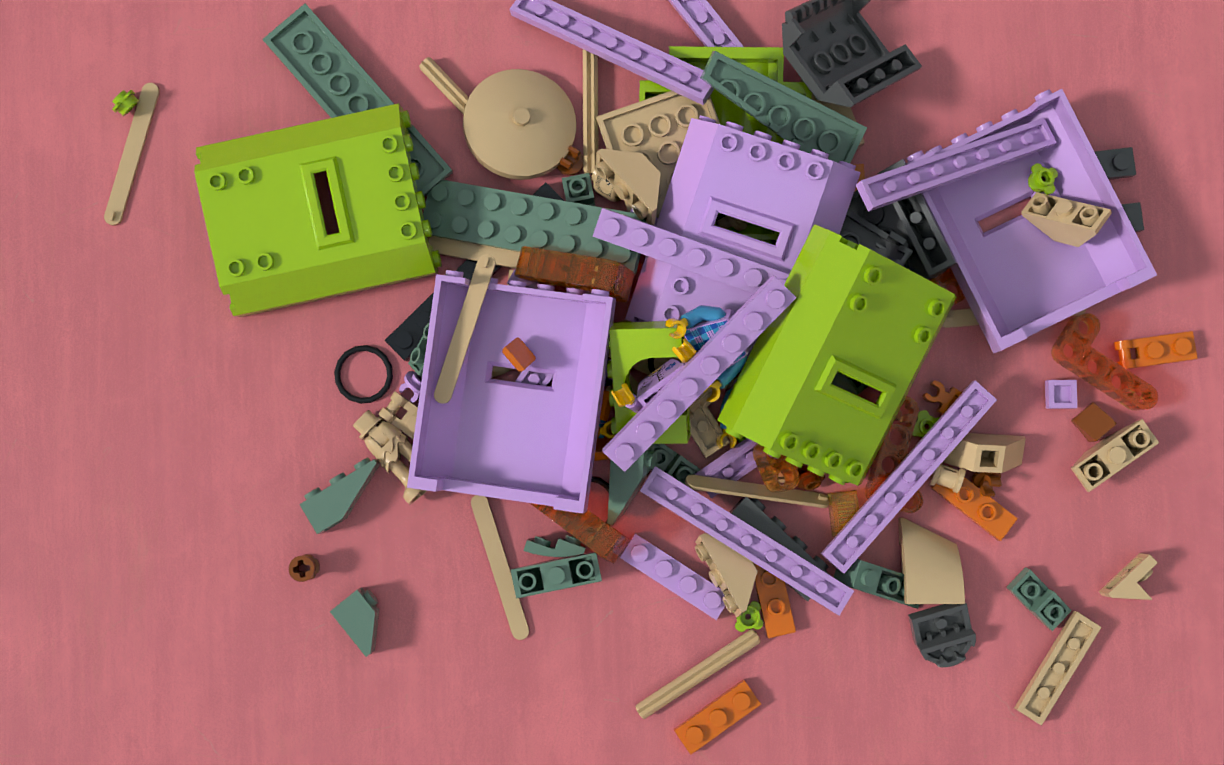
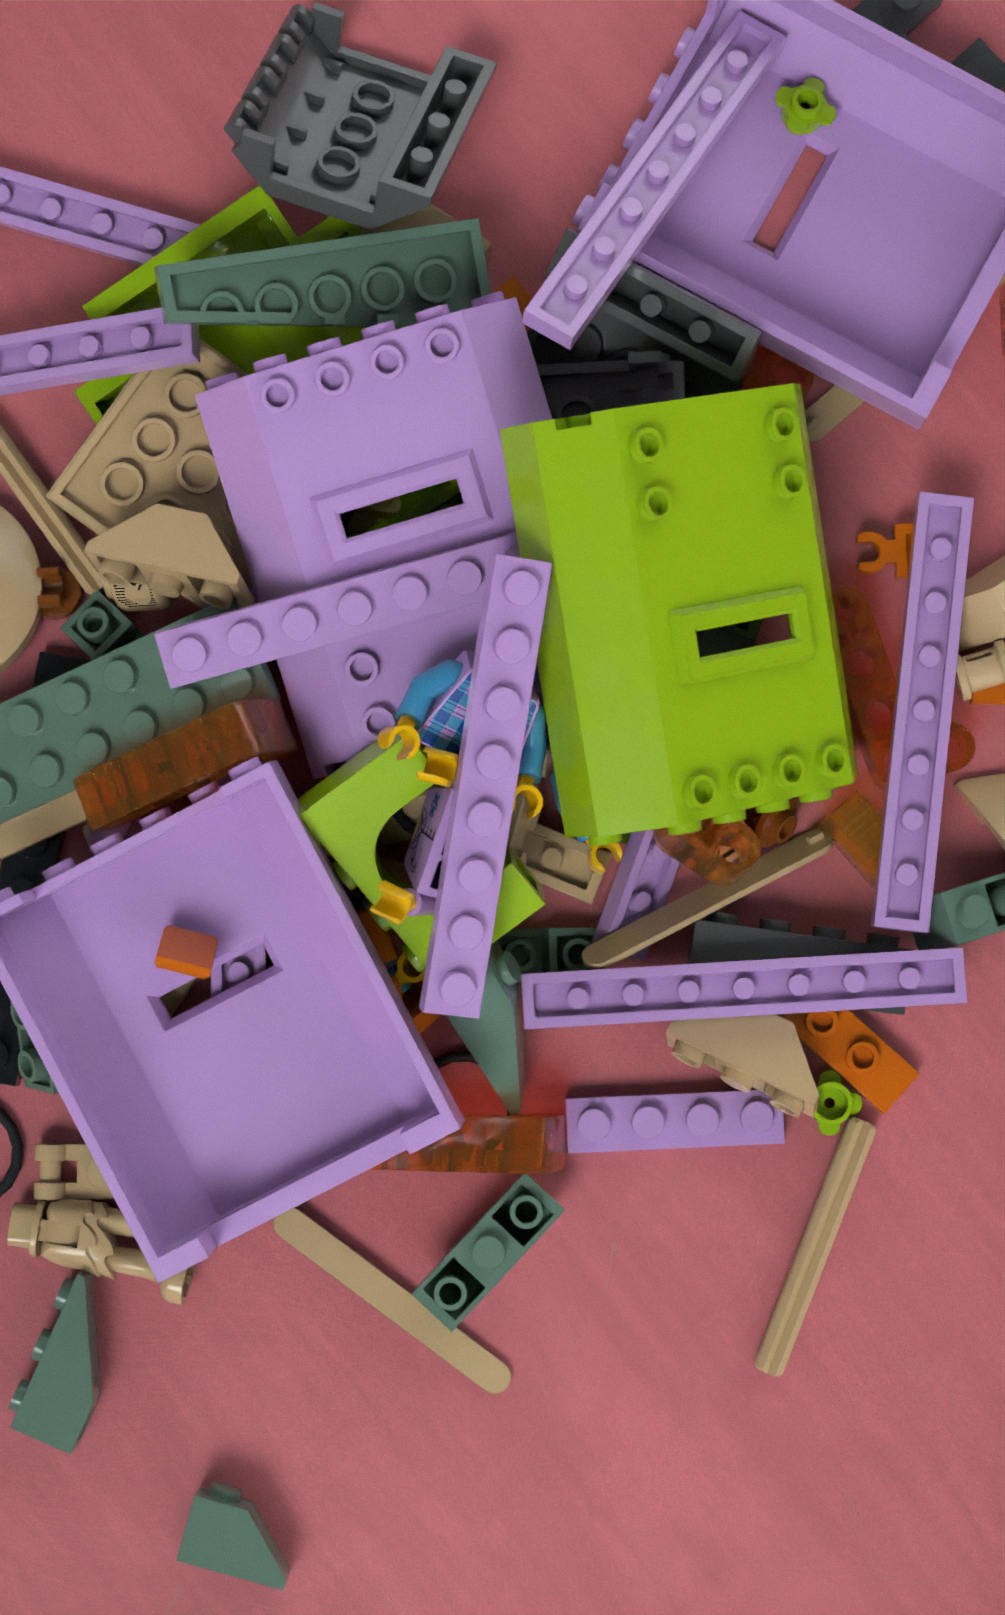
camera: 30 degrees left, 0 degrees up
(301, 576) = (92, 1536): dark orange bush -> none
(412, 381) = (50, 1111): lavender plate -> none
(464, 328) = (73, 972): tan piece -> none
(564, 548) = (470, 1200): sand green slope -> none
(717, 717) = (891, 1291): orange plate -> none
(923, 419) = (883, 607): lime plate -> none
(1065, 219) = (881, 145): tan slope -> none

